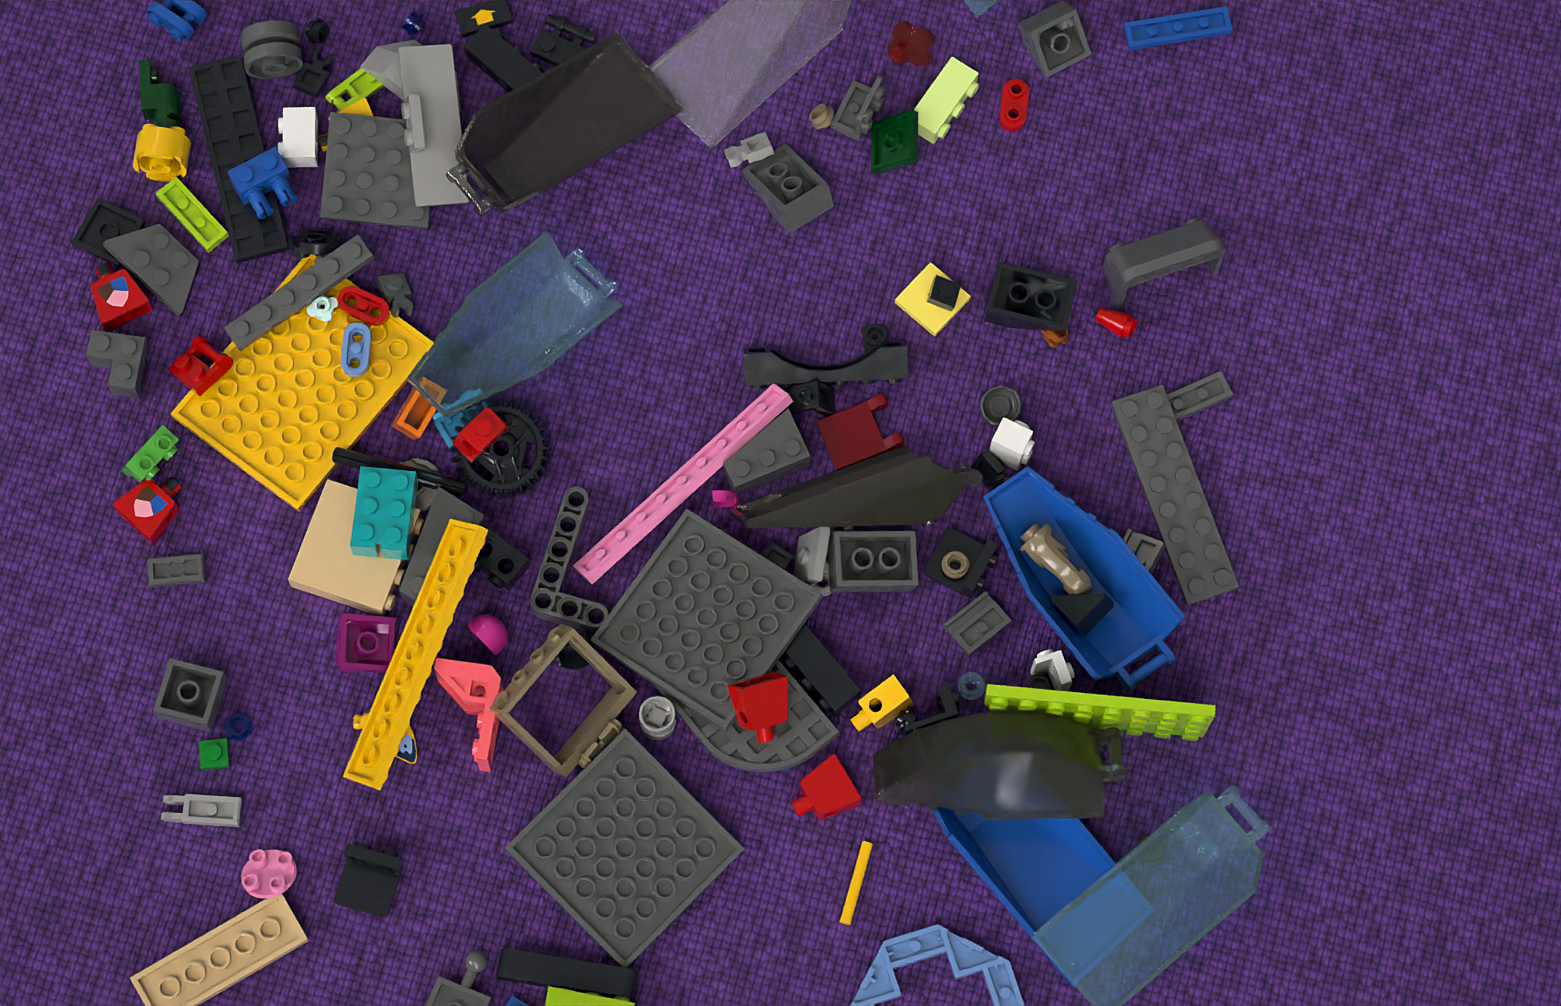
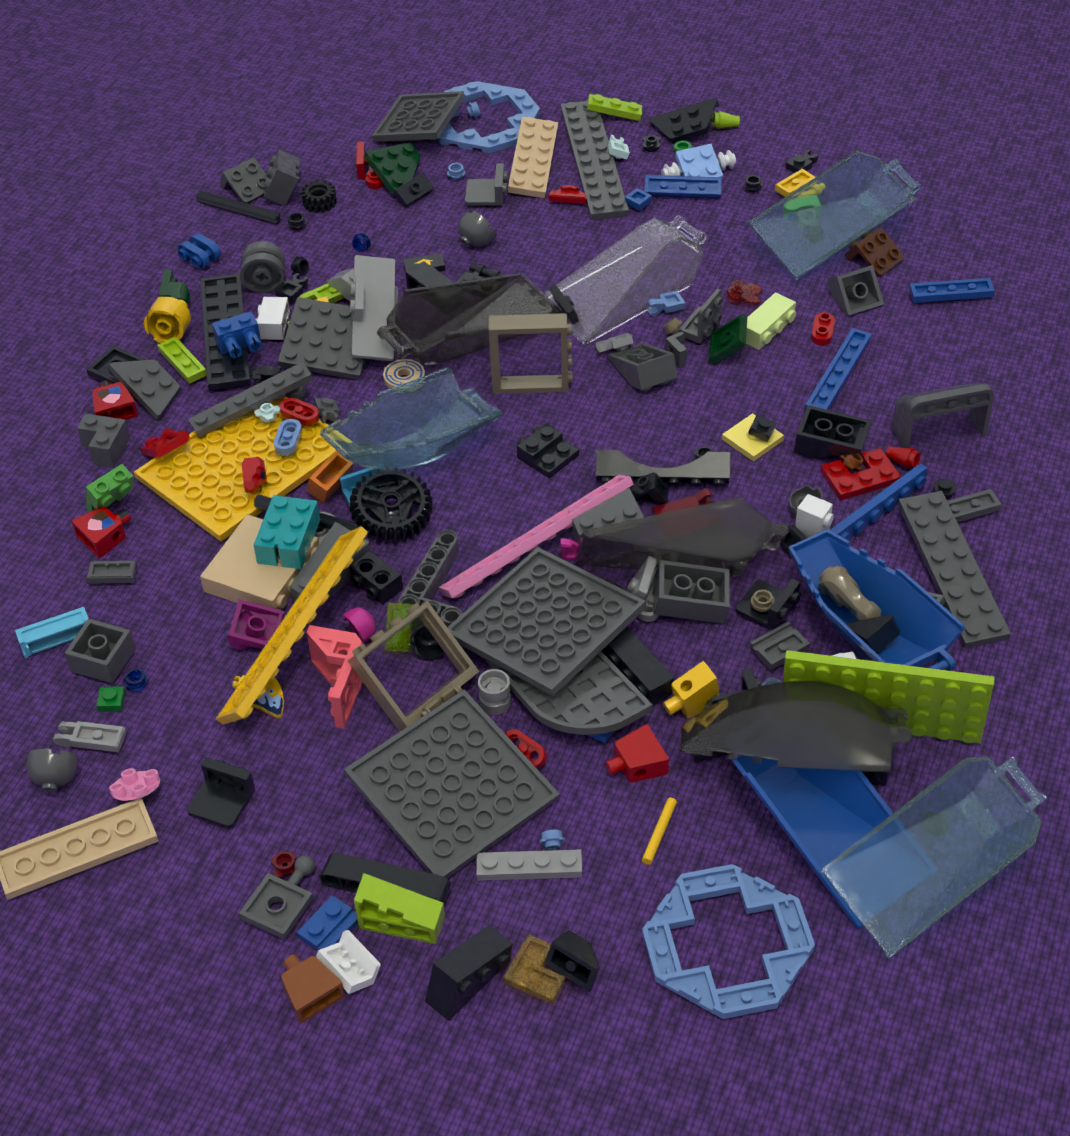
camera: 10 degrees right, 25 degrees down
(127, 667) = (51, 631): none -> medium azure container
(171, 863) = (51, 769): none -> dark grey cylinder
(324, 417) = (253, 474): none -> red rock
(446, 957) = (281, 859): none -> dark red plate
(480, 236) = (402, 367): none -> tan tile
(480, 434) = (374, 479): red torso -> none
(534, 629) = (401, 640): none -> clear neon green plate
(648, 187) = (530, 325): none -> dark tan window
(679, 340) = (546, 450): none -> black plate
(680, 92) = (564, 303): none -> black plate
(701, 789) = (528, 747): none -> red plate
(719, 938) = (529, 865): none -> light grey plate
(741, 906) = (552, 839): none -> medium blue plate
(761, 703) = (584, 672): red torso -> none
(813, 71) = (668, 302): none -> medium blue plate
(829, 161) = (676, 345): none -> dark grey bracket
(1035, 183) = (839, 369): none -> blue plate
(1053, 369) = (878, 475): none -> red plate
(1080, 415) = (881, 503): none -> blue plate
(1166, 368) = (946, 486): none -> black plate

